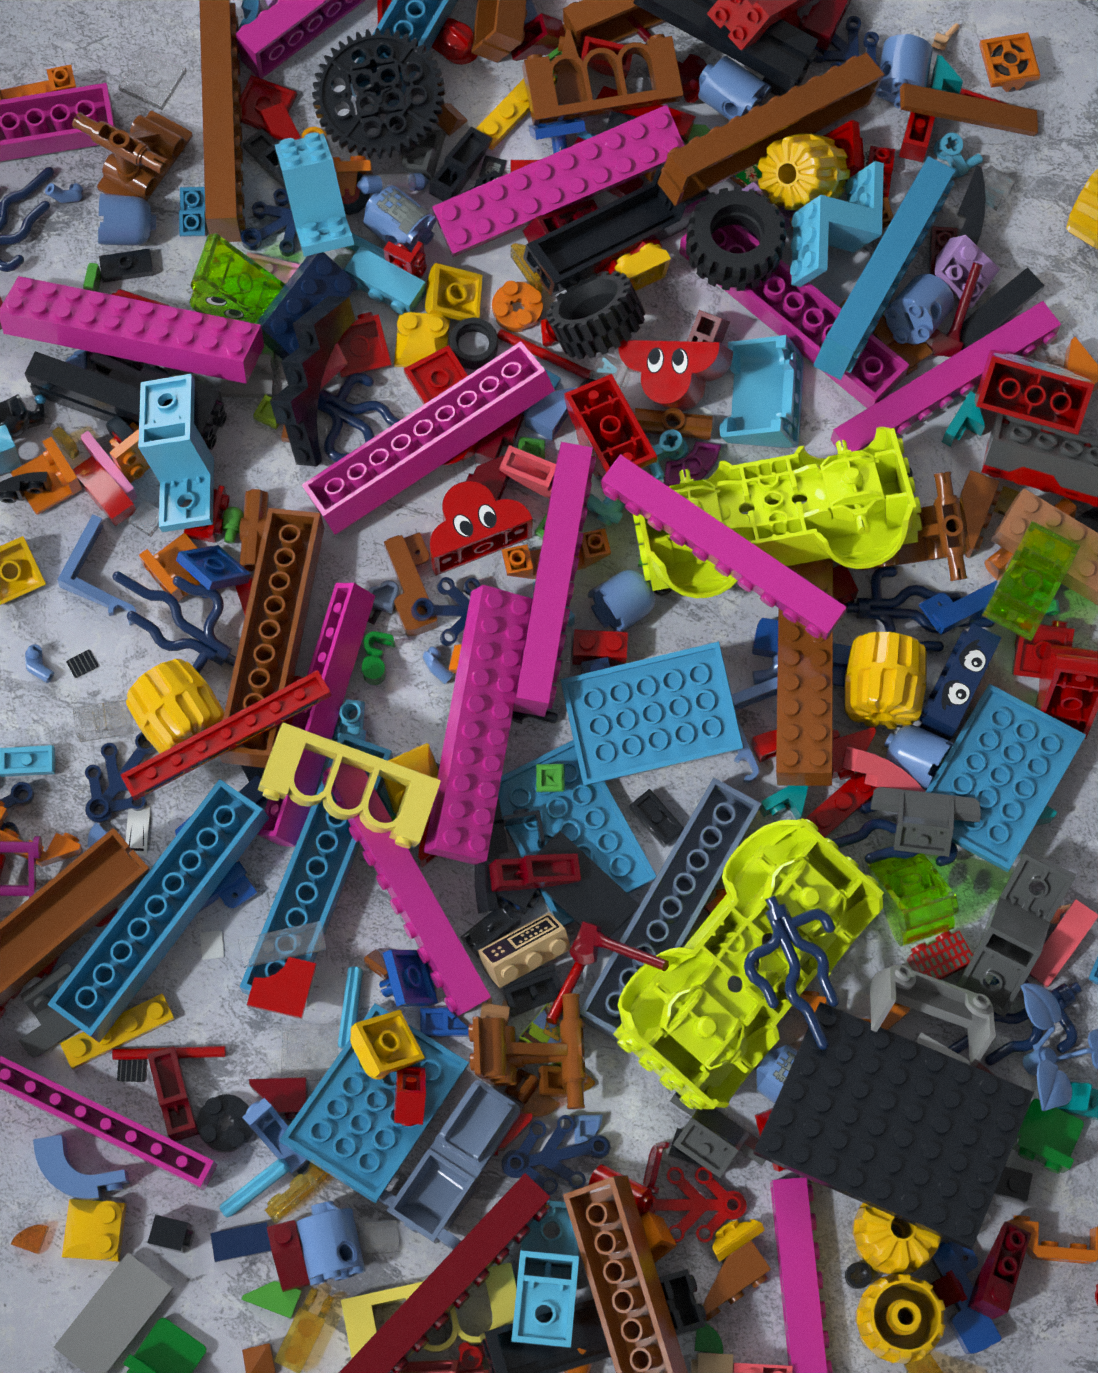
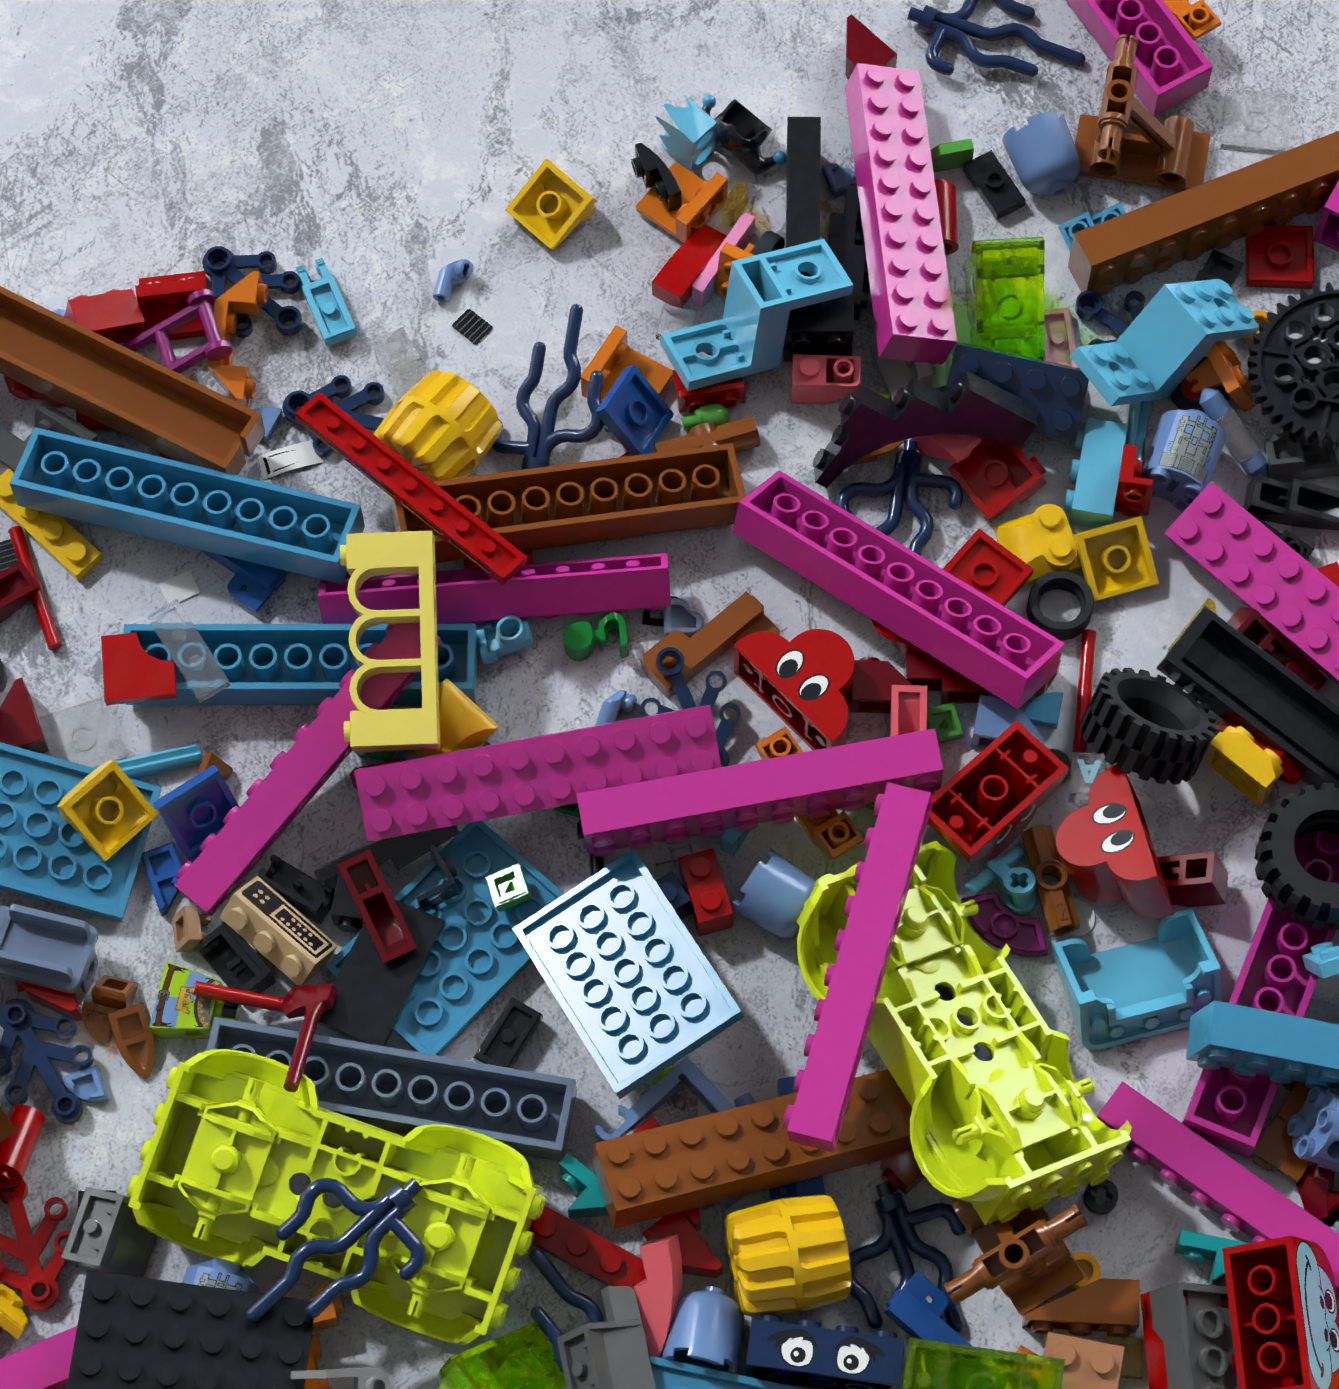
camera: 75 degrees right, 5 degrees down
(65, 196) = (1053, 86): medium blue arm -> none
(68, 578) = (587, 270): medium blue hinge -> none
(236, 431) = (823, 377): none -> coral slope
(279, 122) = (1258, 278): red tile -> none
(410, 1096) = (50, 856): red slope -> none
(490, 164) = (1323, 546): black sticker -> none
(499, 1055) = (131, 939): dark orange plate -> none
(524, 318) = (1135, 621): orange plate -> none
(653, 1166) = (57, 1176): dark red piece -> none

